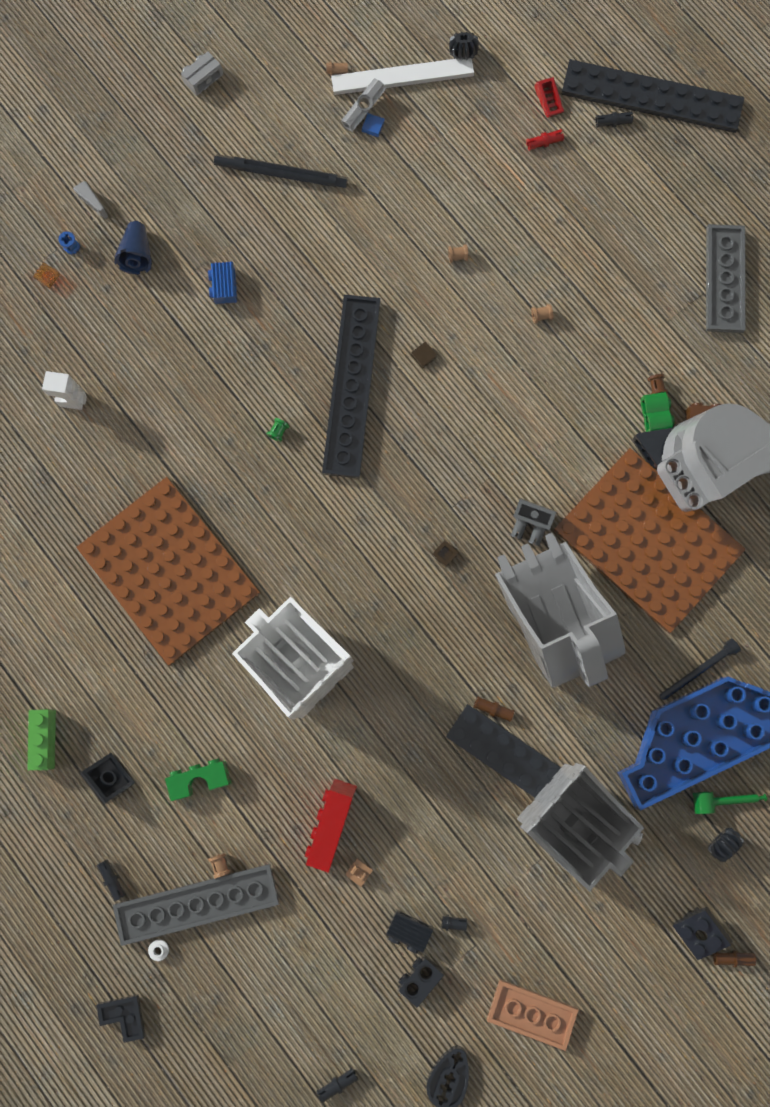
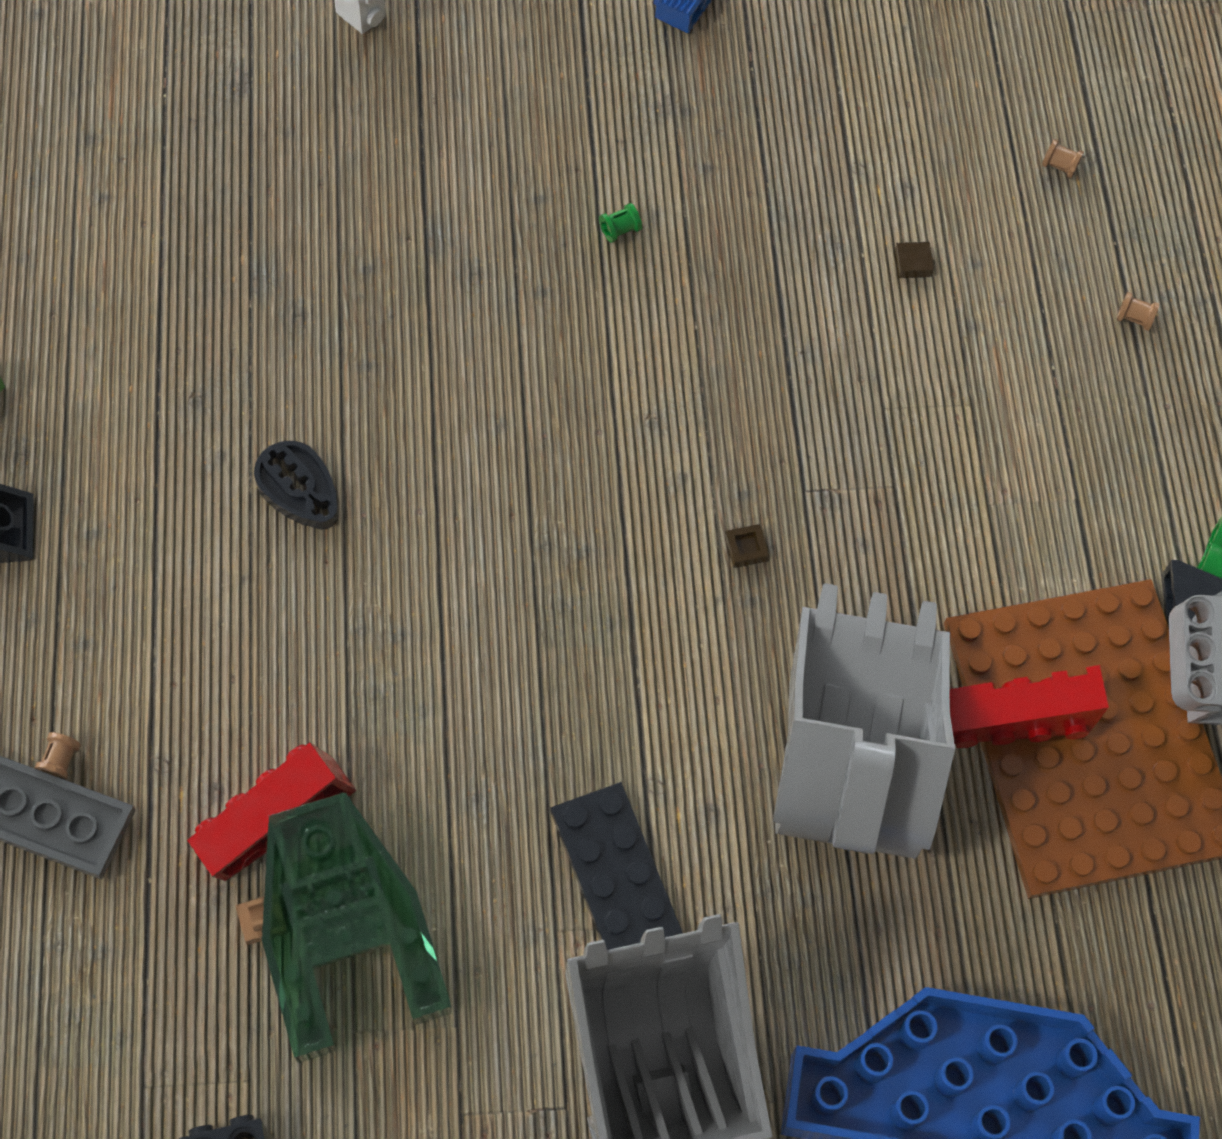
camera: 25 degrees right, 15 degrees down
(168, 571) = (315, 309): dark orange plate -> none
(180, 784) = (99, 599): green arch -> none
(221, 674) = (280, 491): none -> black piece
(292, 658) = (404, 516): white piece -> none
(351, 386) = (770, 235): black plate -> none
(388, 848) = (333, 898): none -> clear green wedge
(409, 931) = (267, 1063): black brick -> none
(454, 923) = (348, 1104): black pin -> none
(493, 709) = (657, 817): reddish brown pin -> none
(538, 515) = (928, 571): dark grey brick -> none
(620, 553) = (1028, 709): none -> red wedge
(730, 648) = (1118, 986): black piece -> none

